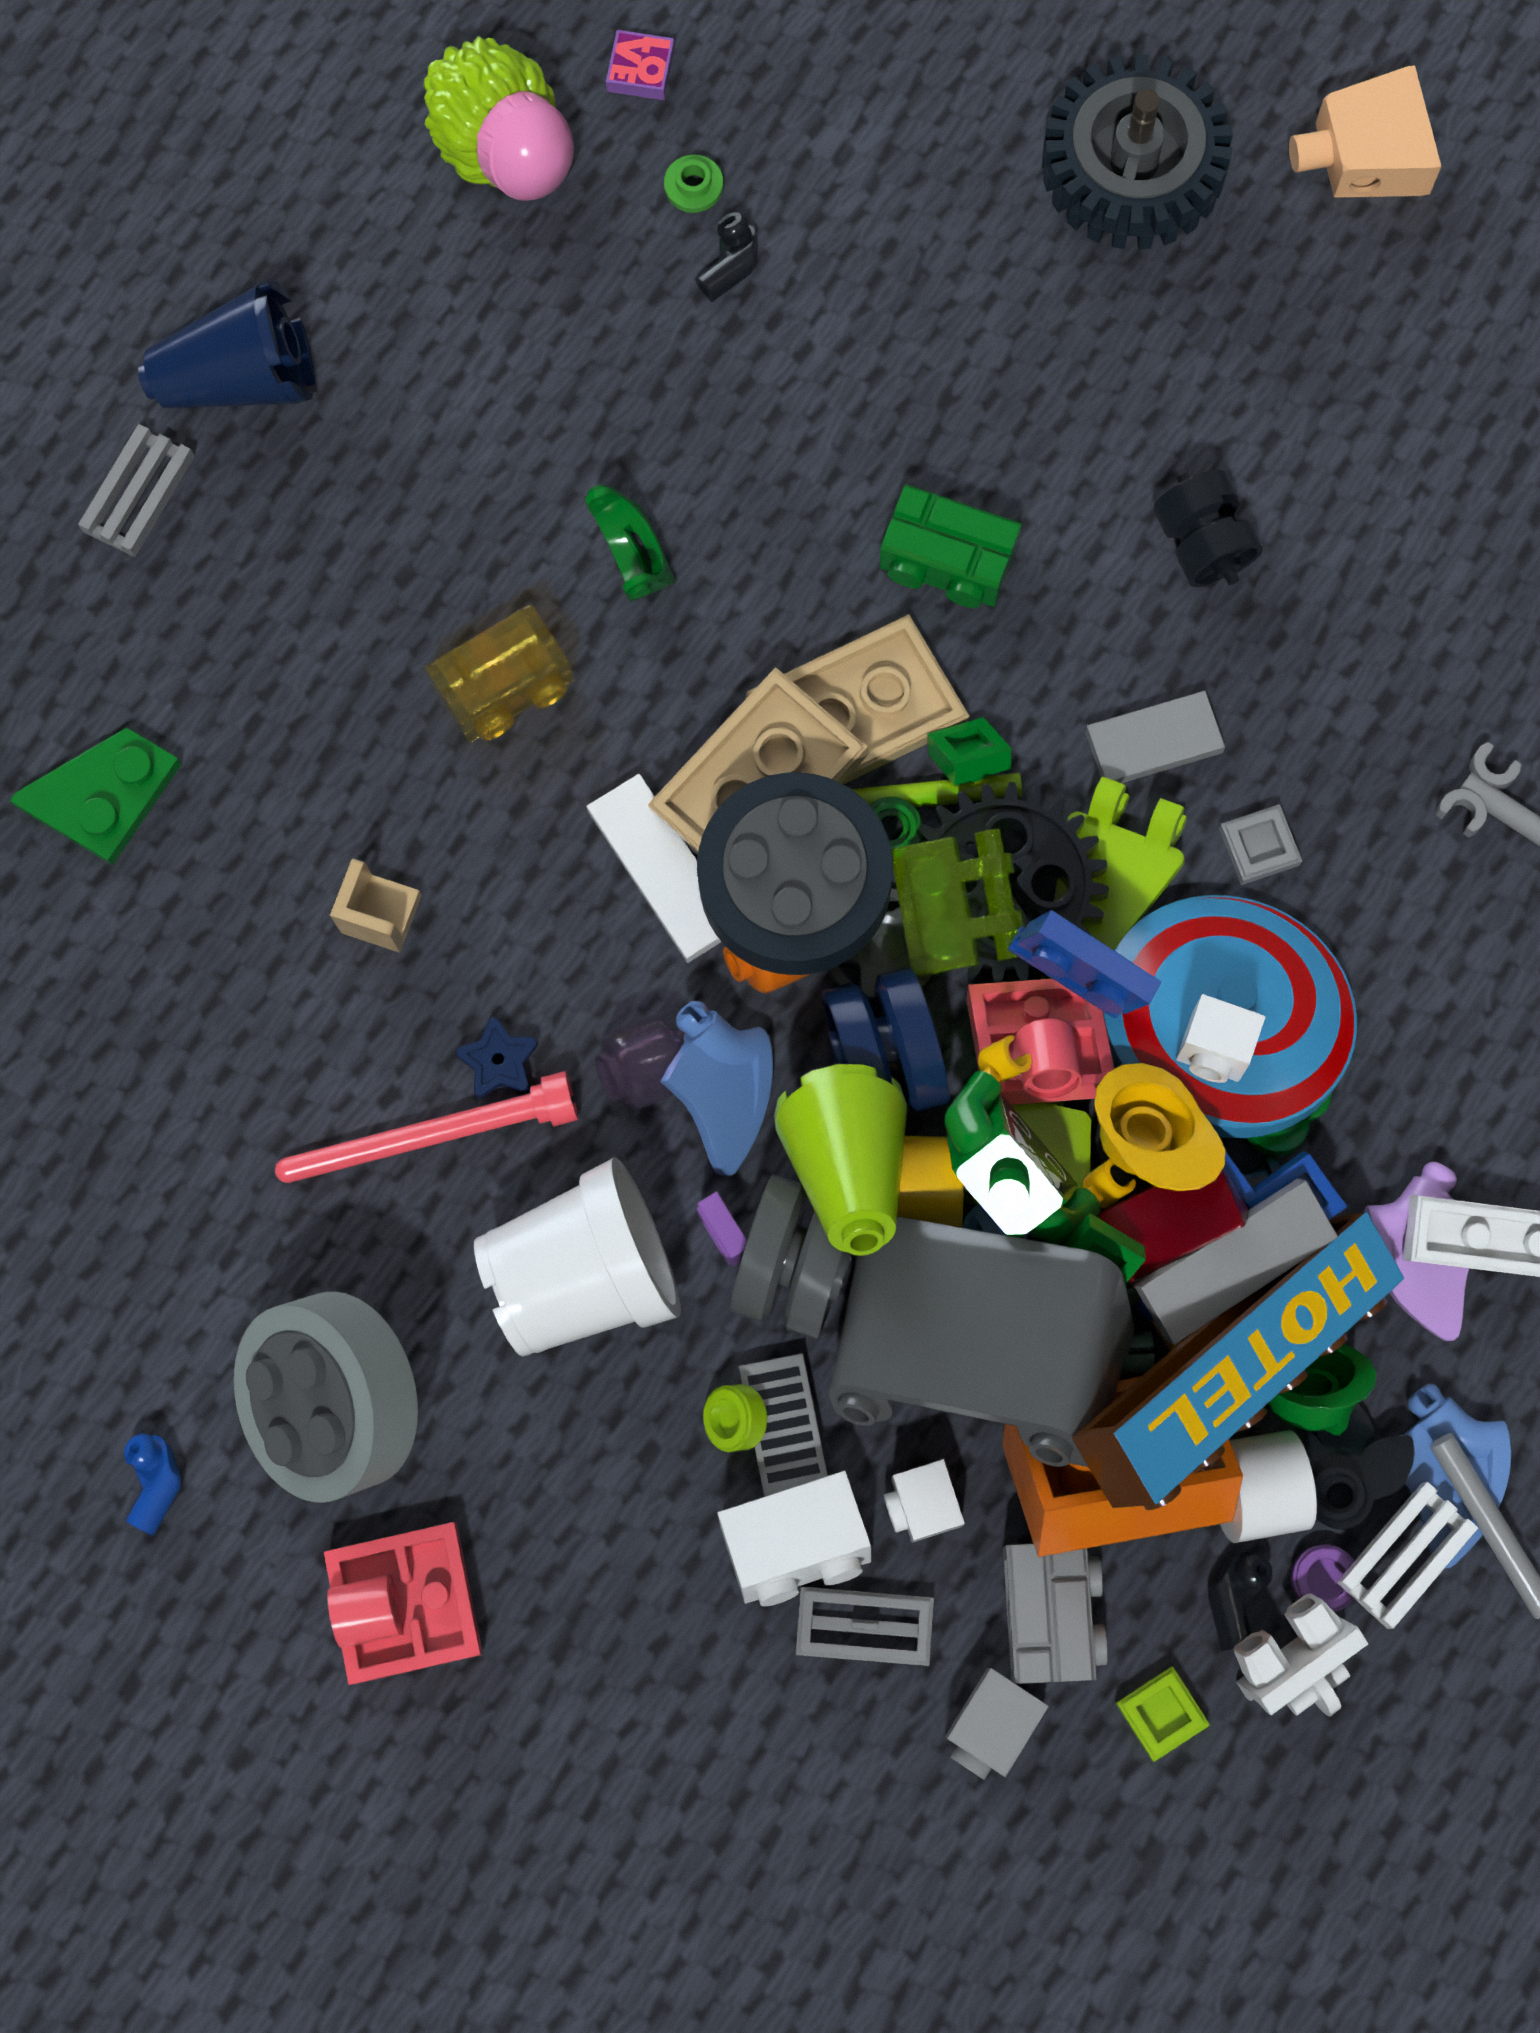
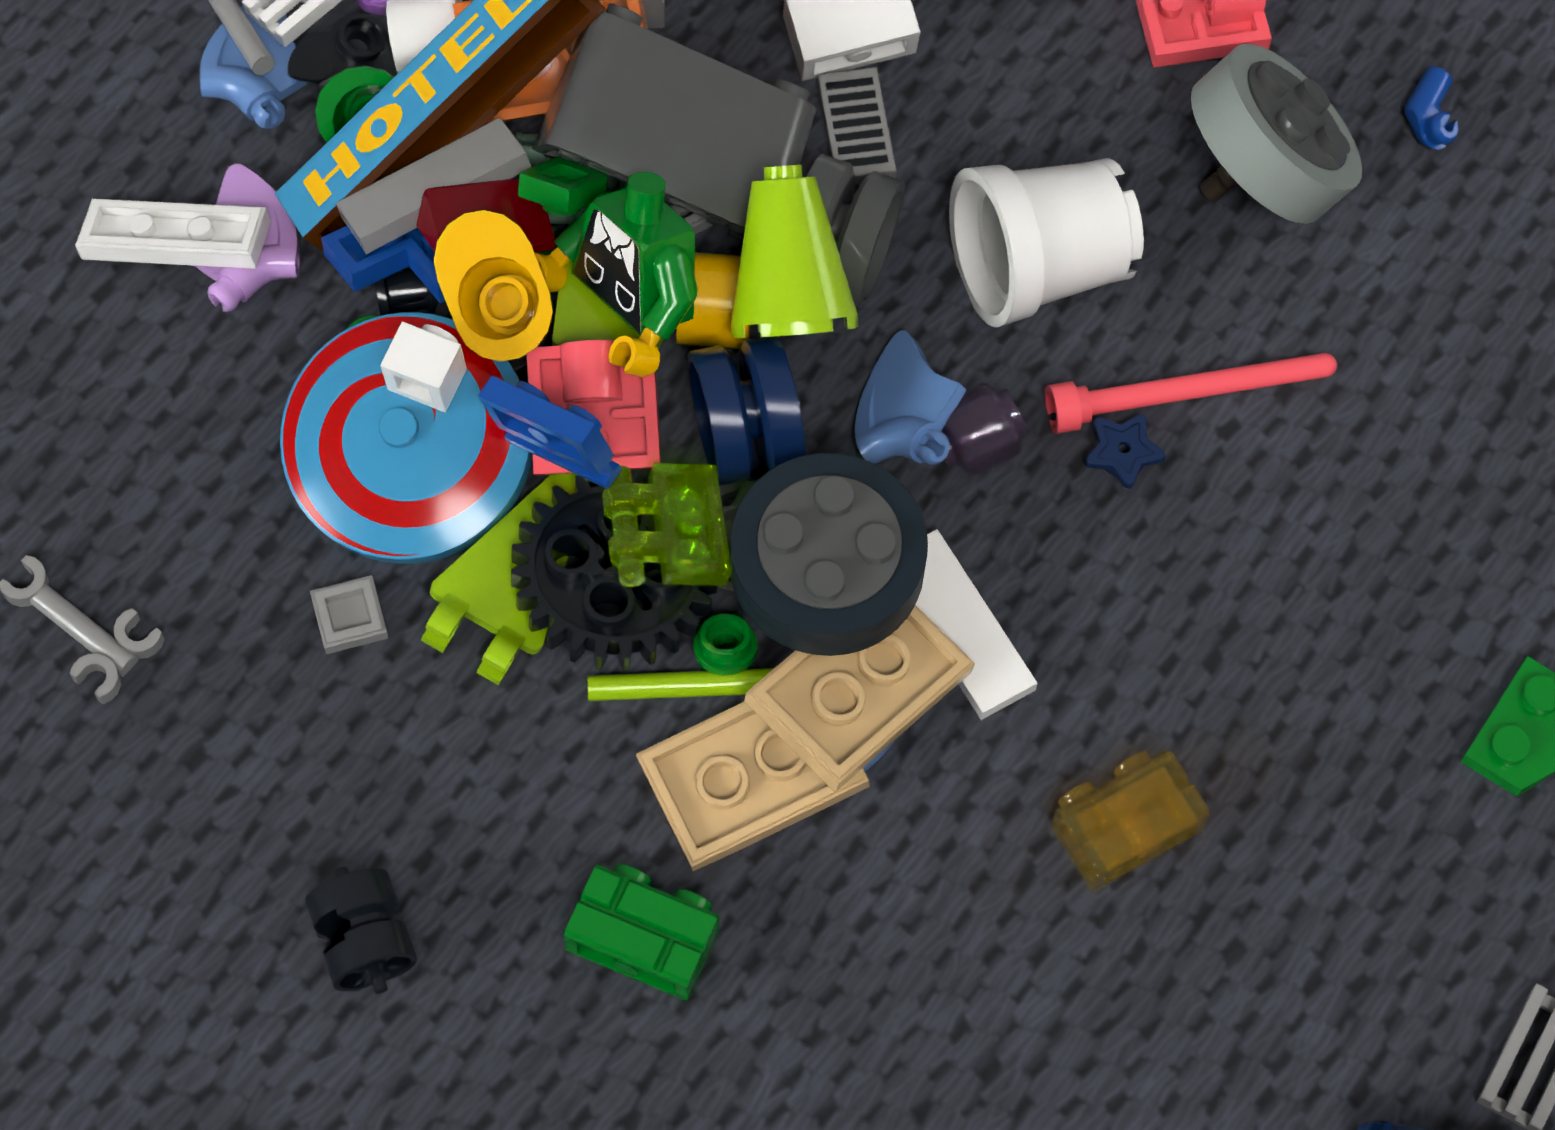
camera: 175 degrees right, 10 degrees down
(374, 907) = (1250, 586): tan panel -> none
(617, 520) = (974, 910): green helmet -> none
(722, 1228) = (906, 278): medium lavender tile -> none
(735, 1417) = (901, 127): lime tile -> none
(923, 1502) = (733, 41): white plate -> none
(969, 751) = (639, 710): green plate -> none
(1155, 738) = (443, 725): light grey tile -> none

